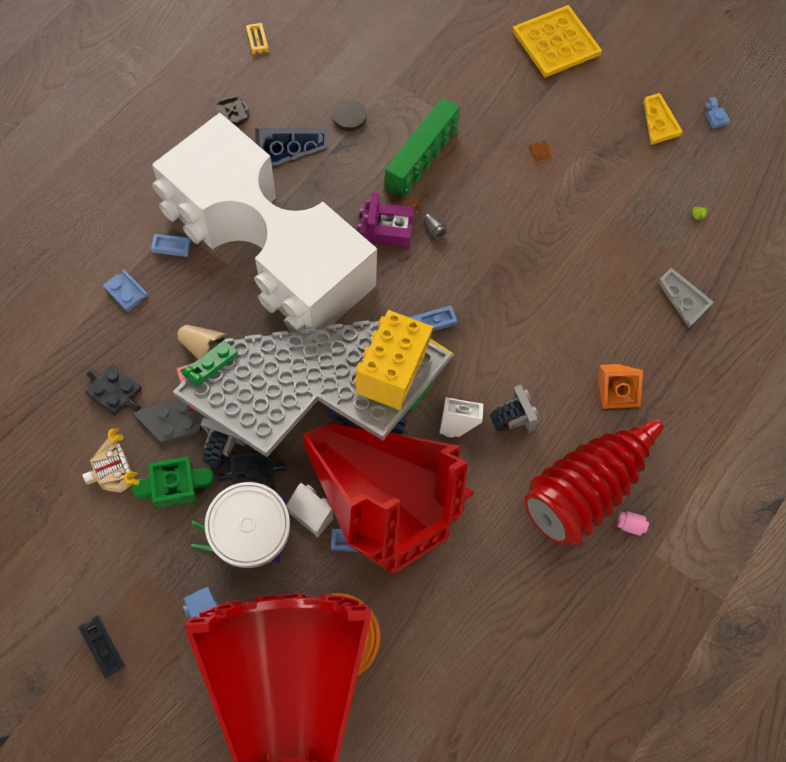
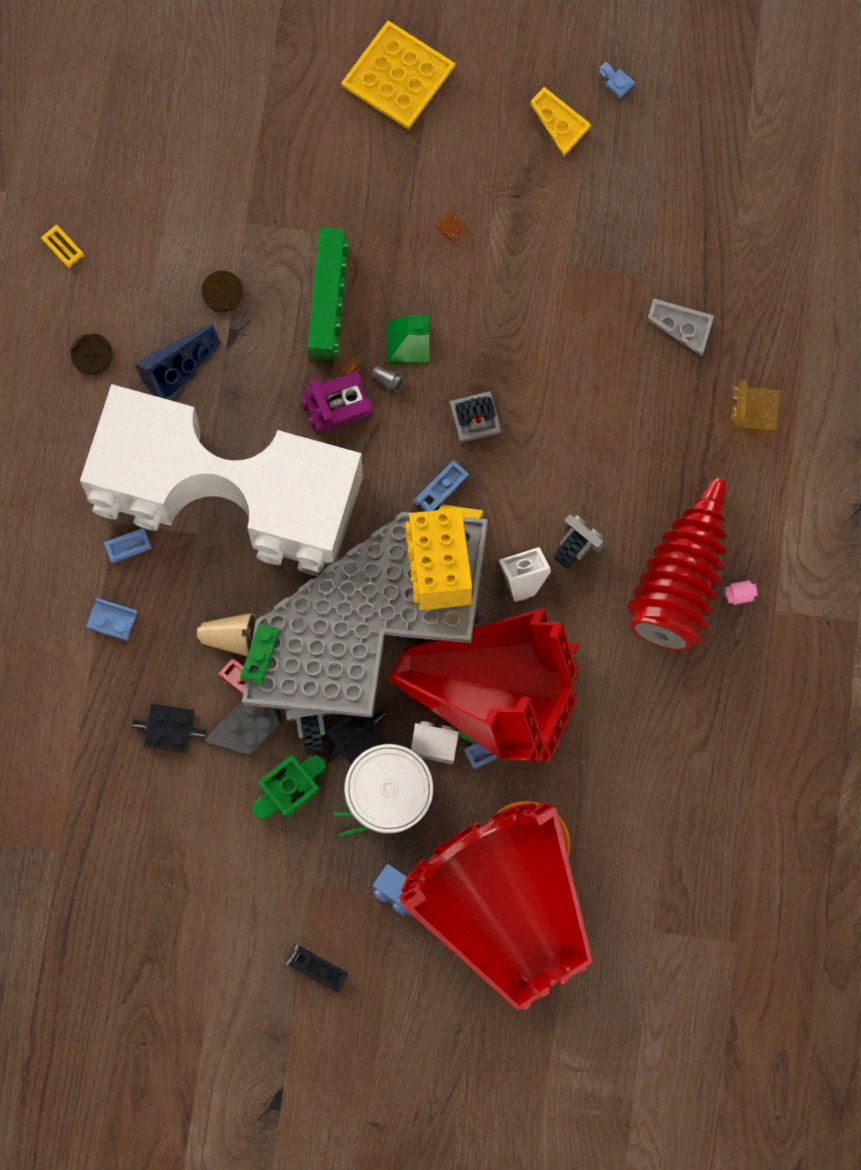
camera: 25 degrees left, 10 degrees up
(111, 466) = (220, 804): torso -> none
(466, 208) = (408, 340): none -> green slope
(486, 283) = (475, 417): none -> plate
(620, 386) = (663, 458): orange slope -> none
(699, 212) = (653, 215): lime hinge -> none
(714, 385) = (754, 407): none -> clear yellow bracket

